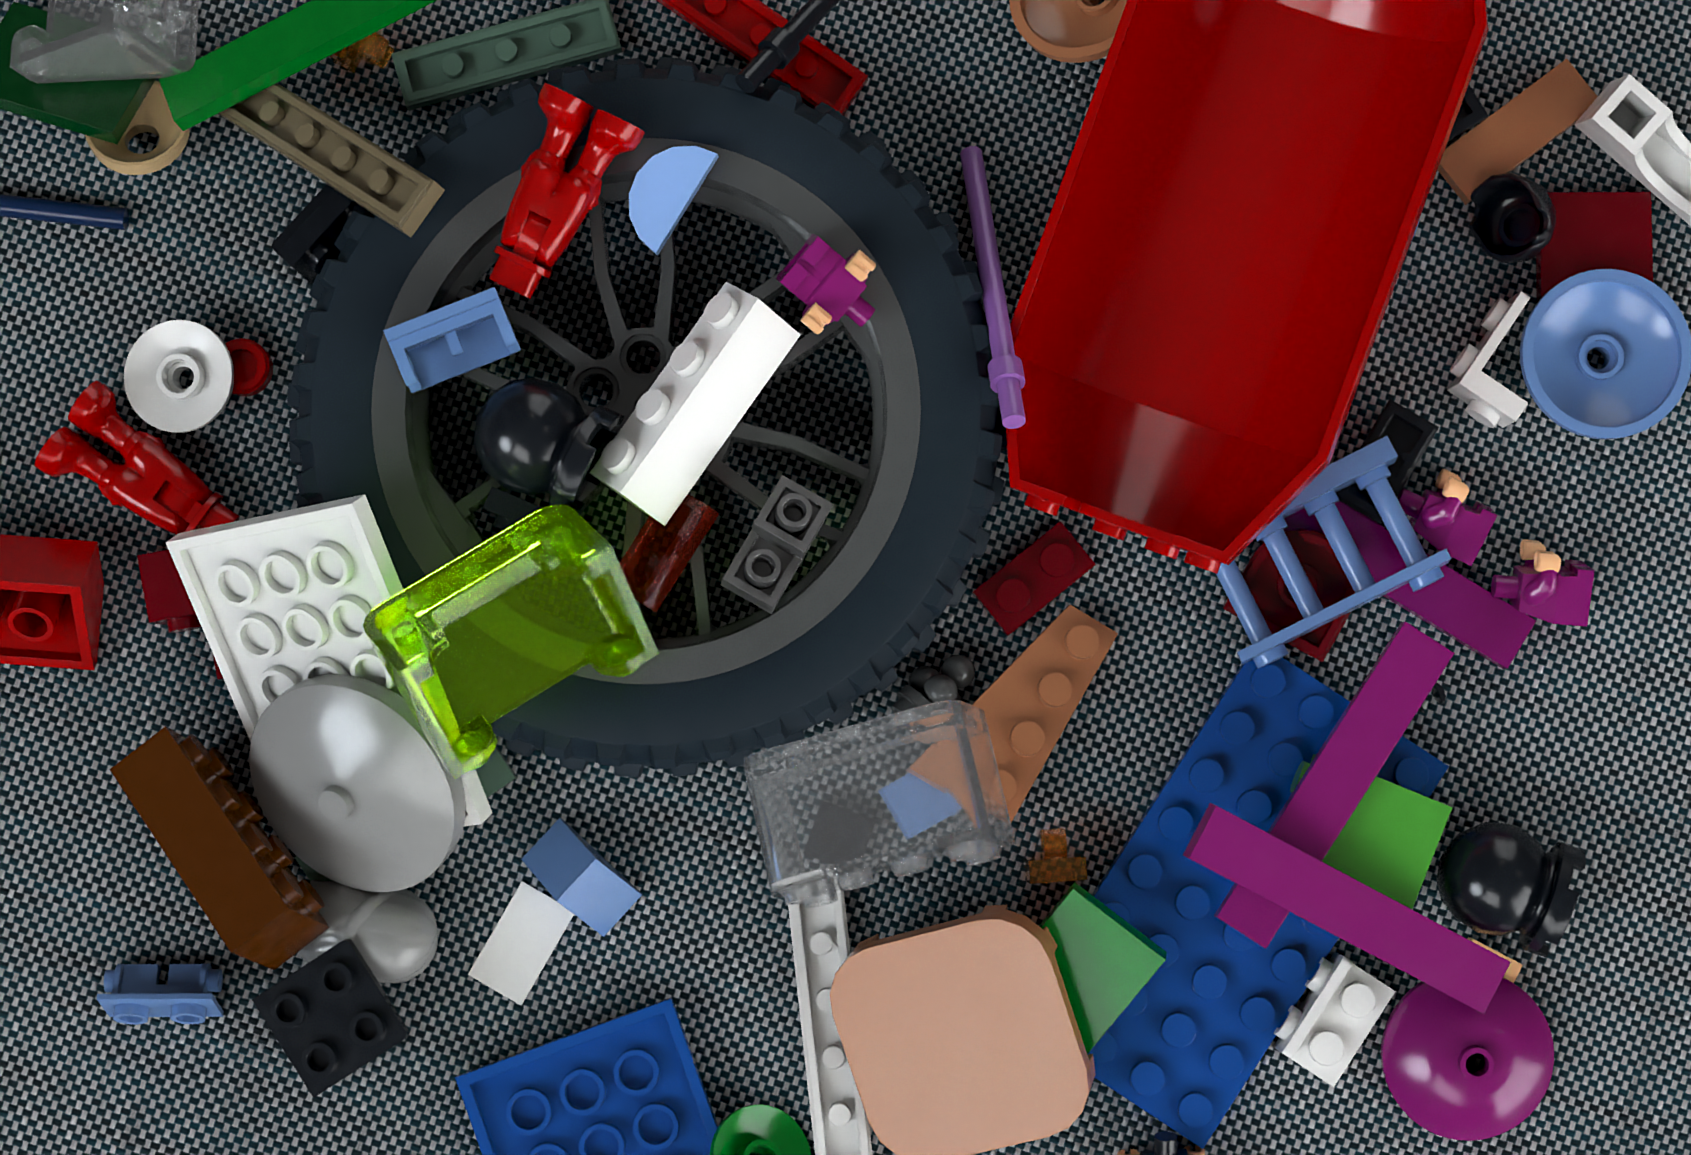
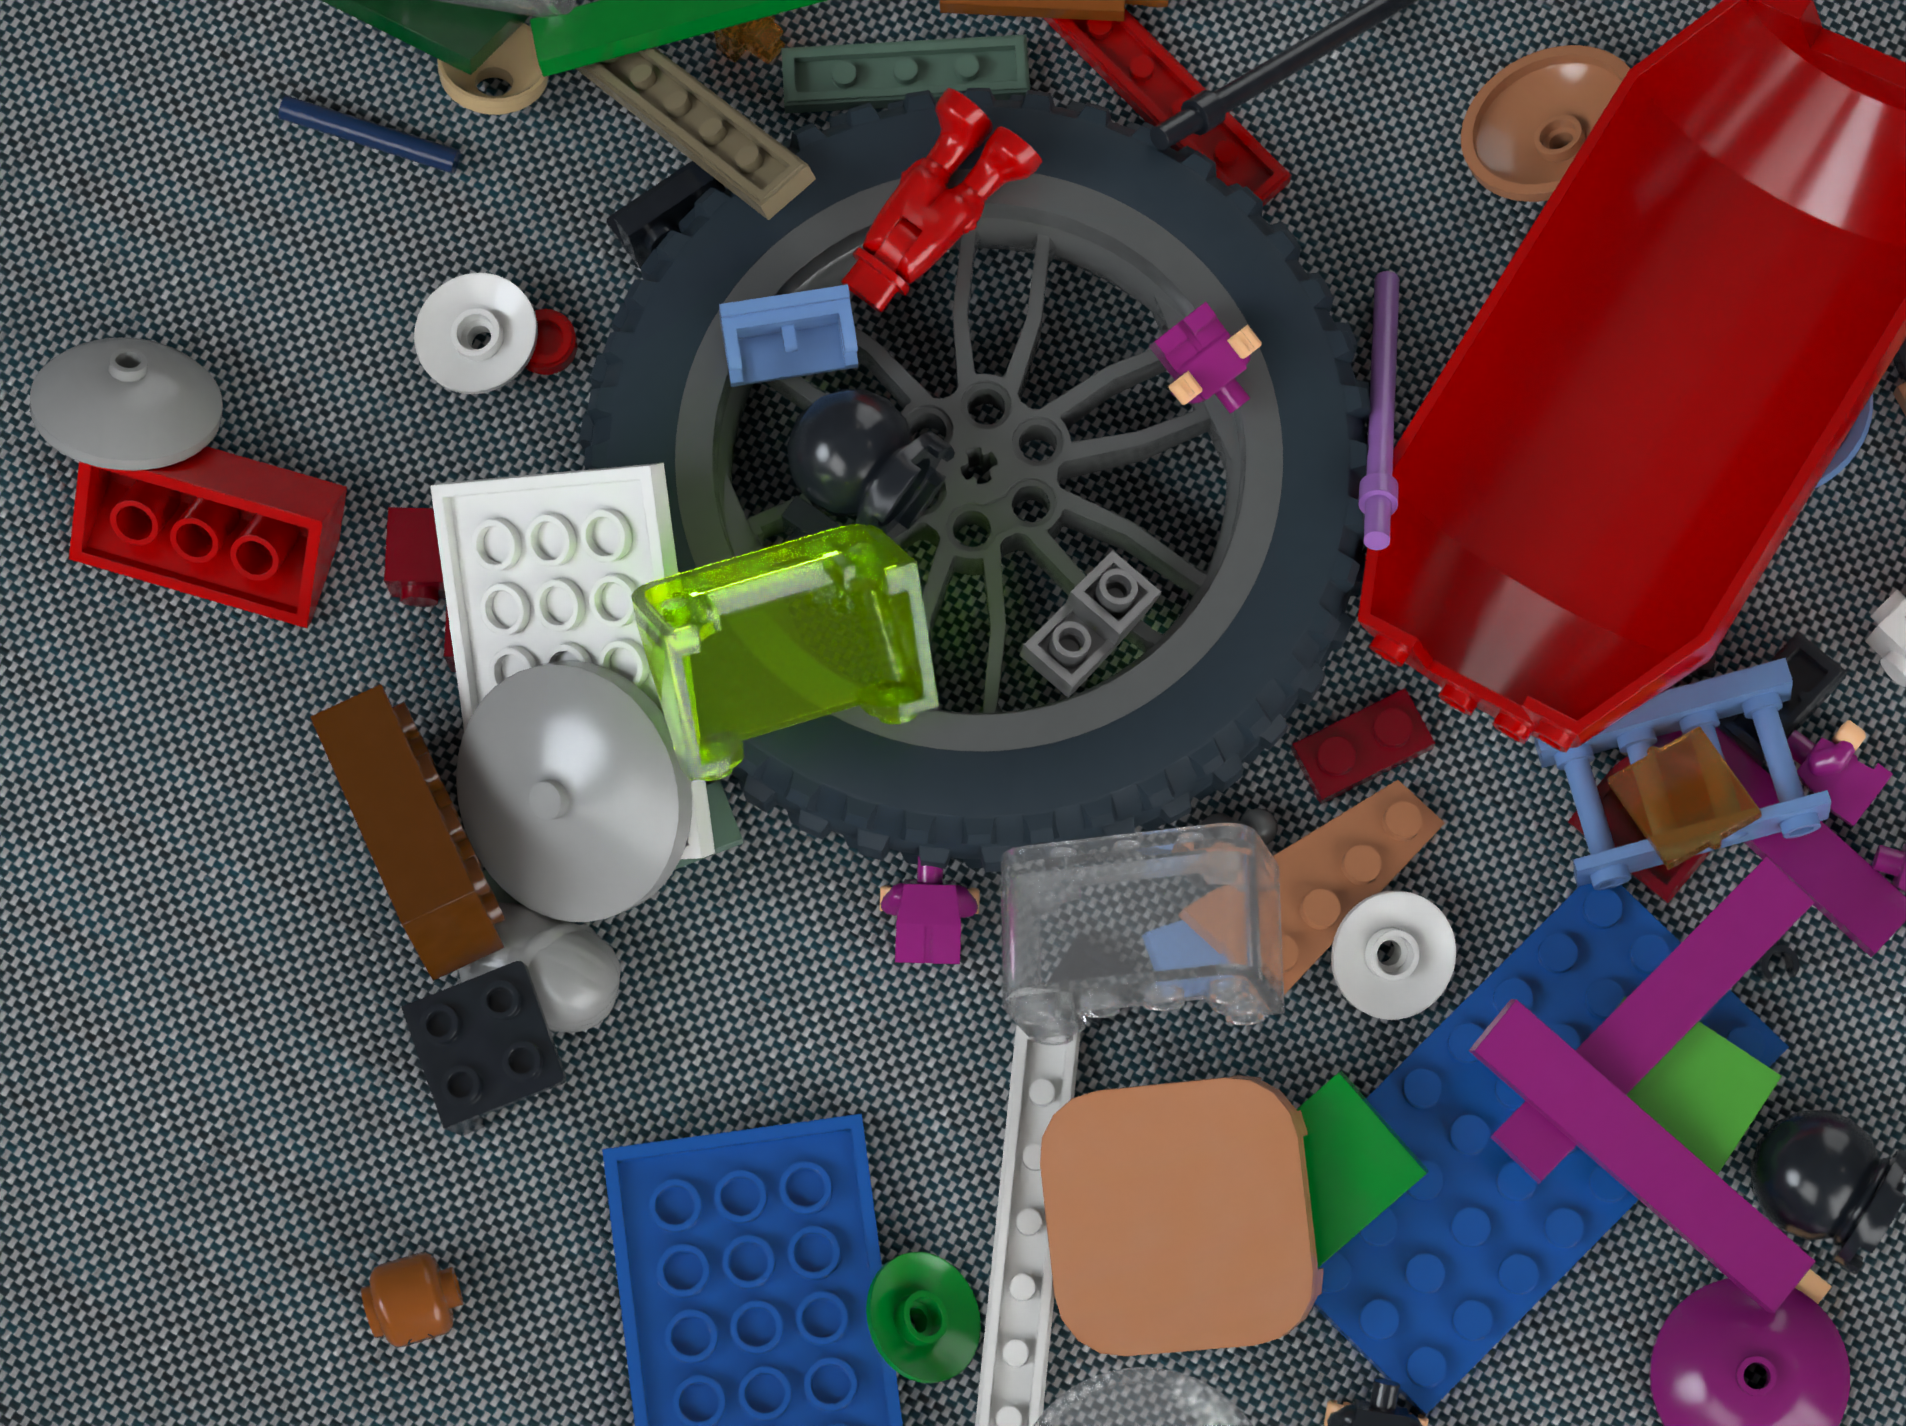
camera: 15 degrees right, 10 degrees down
(150, 481) = (421, 435): red piece -> none
(184, 998) = (269, 987): medium blue hinge -> none
(521, 943) = (707, 1024): white sticker -> none
(580, 878) = (792, 964): medium blue slope -> none
(663, 551) = (972, 600): clear red tile -> none
(665, 191) = (1050, 230): light blue tile -> none
(691, 816) = (928, 916): none -> magenta piece
(695, 402) = (1034, 456): white brick -> none
(1055, 863) = (1322, 1057): clear orange tile -> none
(1113, 774) = (1420, 961): none -> white dish
(1323, 578) = (1684, 797): none -> clear orange piece
(1332, 1018) = (1604, 1301): white bracket -> none

